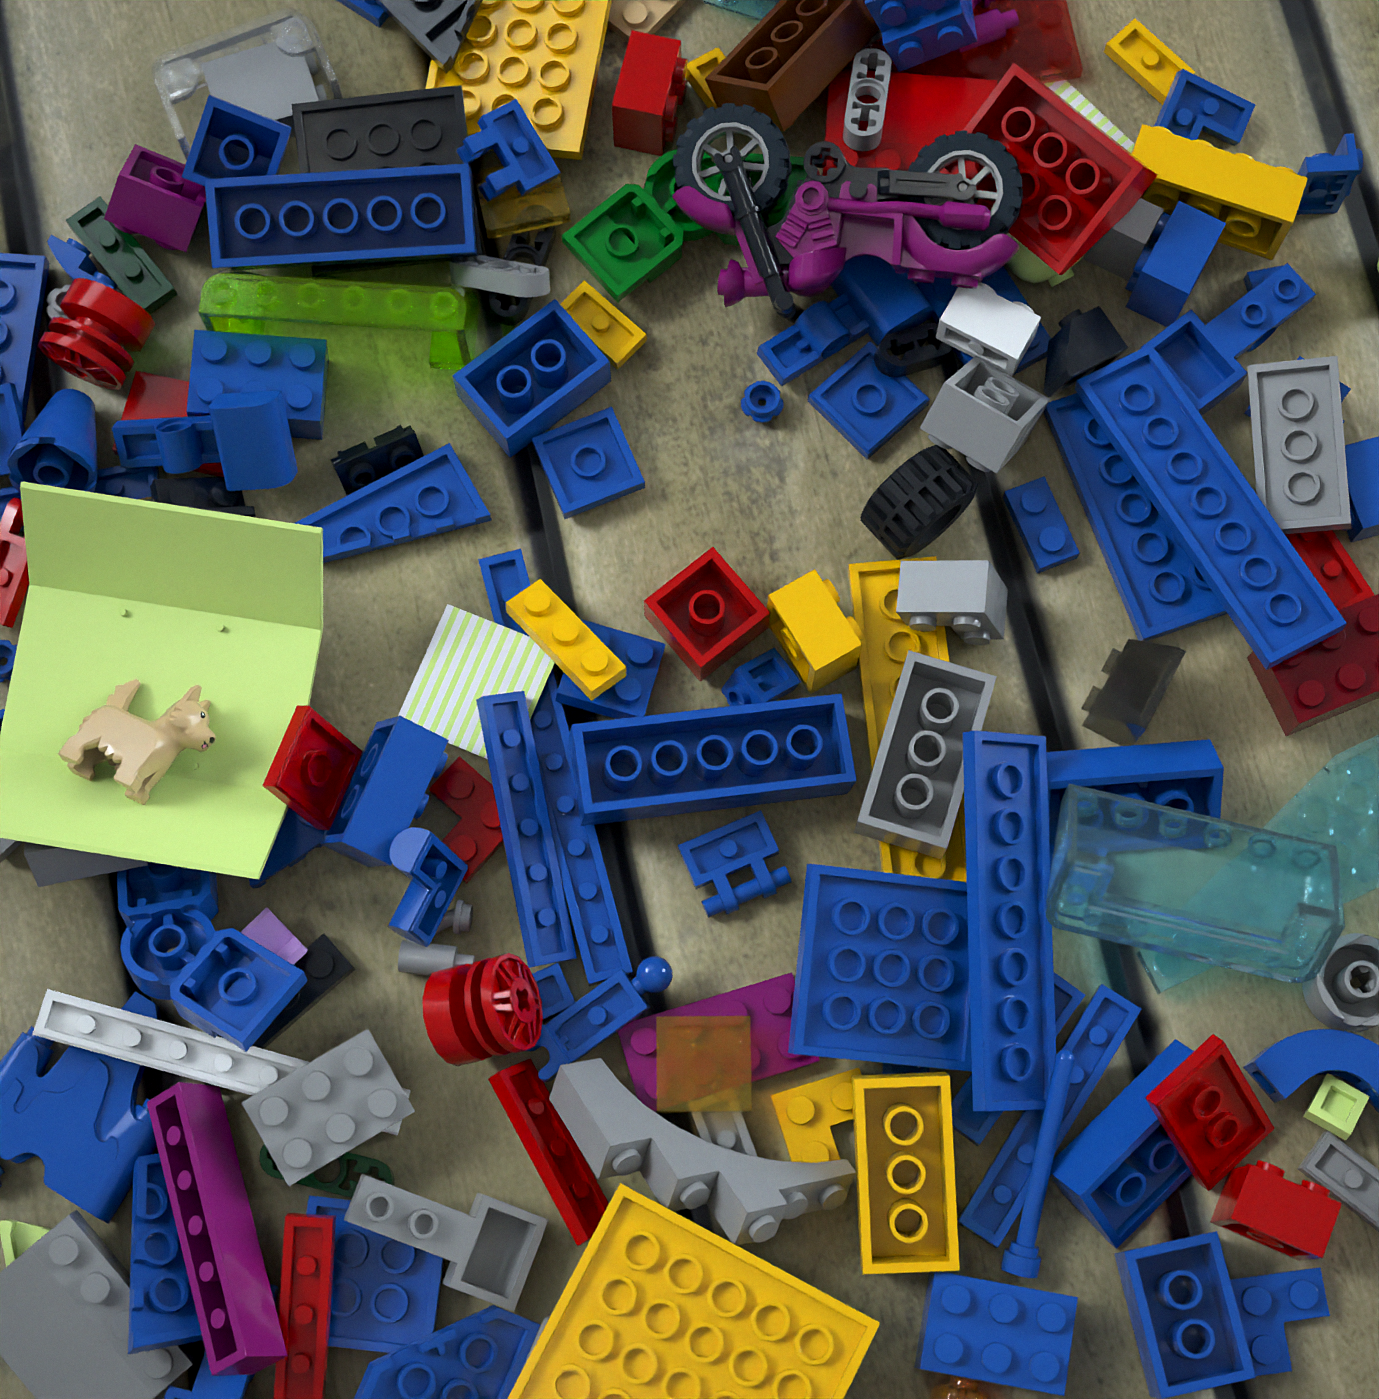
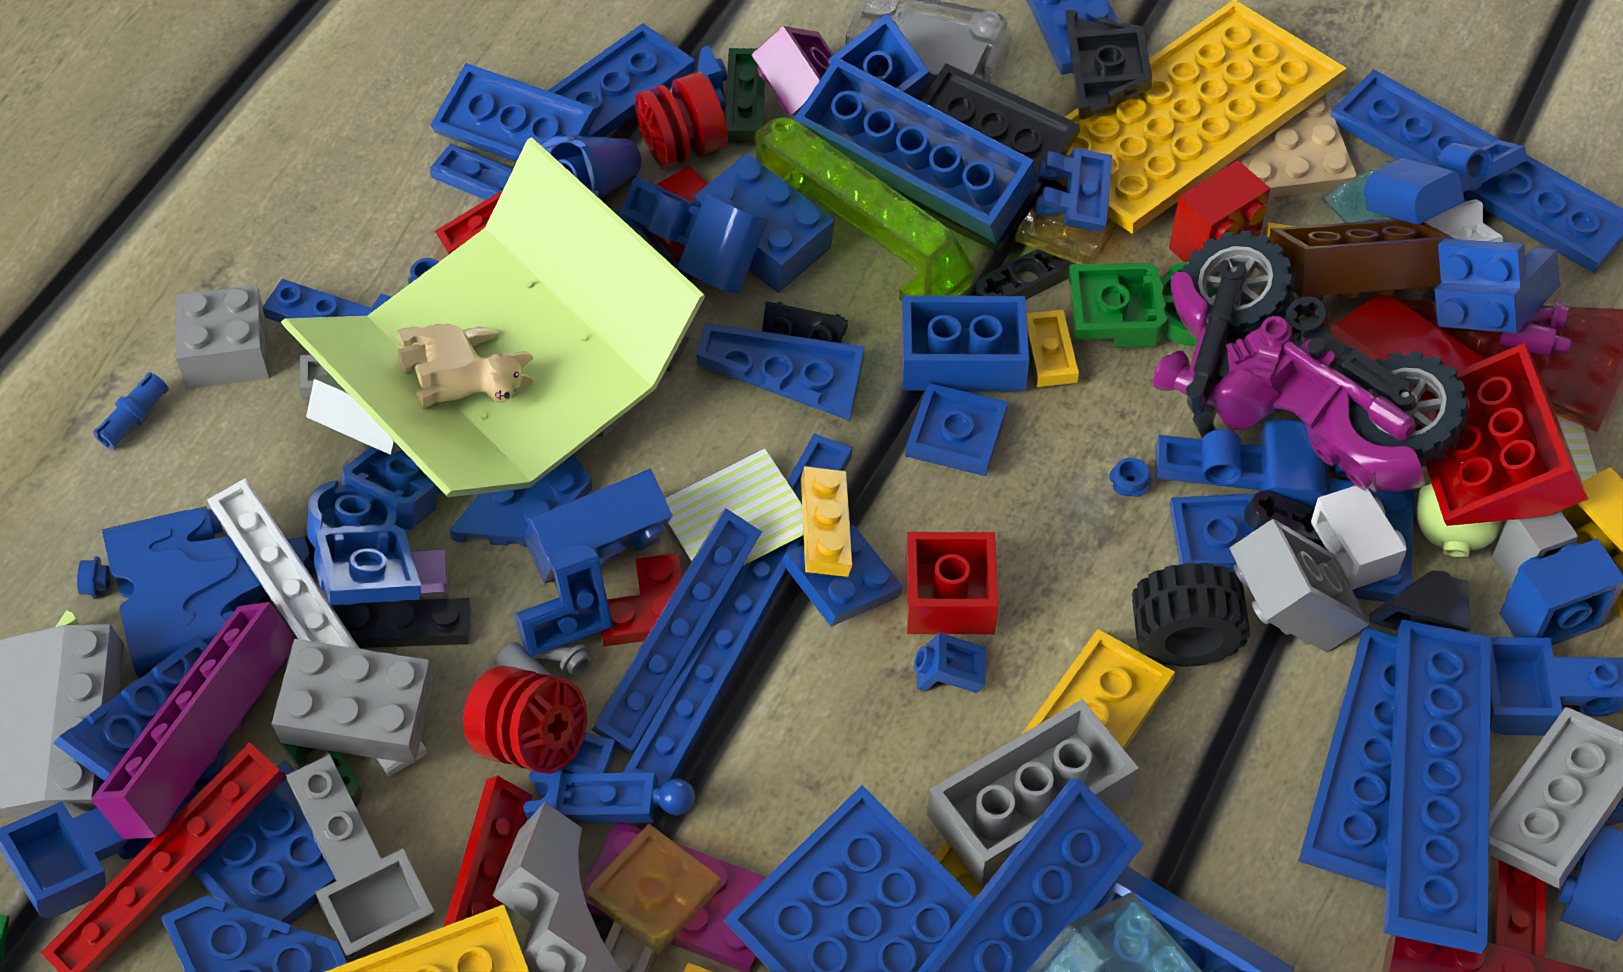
camera: 40 degrees right, 20 degrees down
(312, 768) = (560, 466): red plate -> none
(500, 276) = (998, 259): light grey beam -> none
(711, 759) = (860, 678): blue brick -> none
(730, 850) = (815, 762): blue plate -> none
(814, 630) = (1025, 649): yellow brick -> none
(874, 112) = (1374, 331): light grey beam -> none
(953, 594) = (1166, 702): light grey brick -> none
(1040, 525) = (1287, 716): blue plate -> none
(1131, 690) = (1257, 883): clear smoke slope -> none

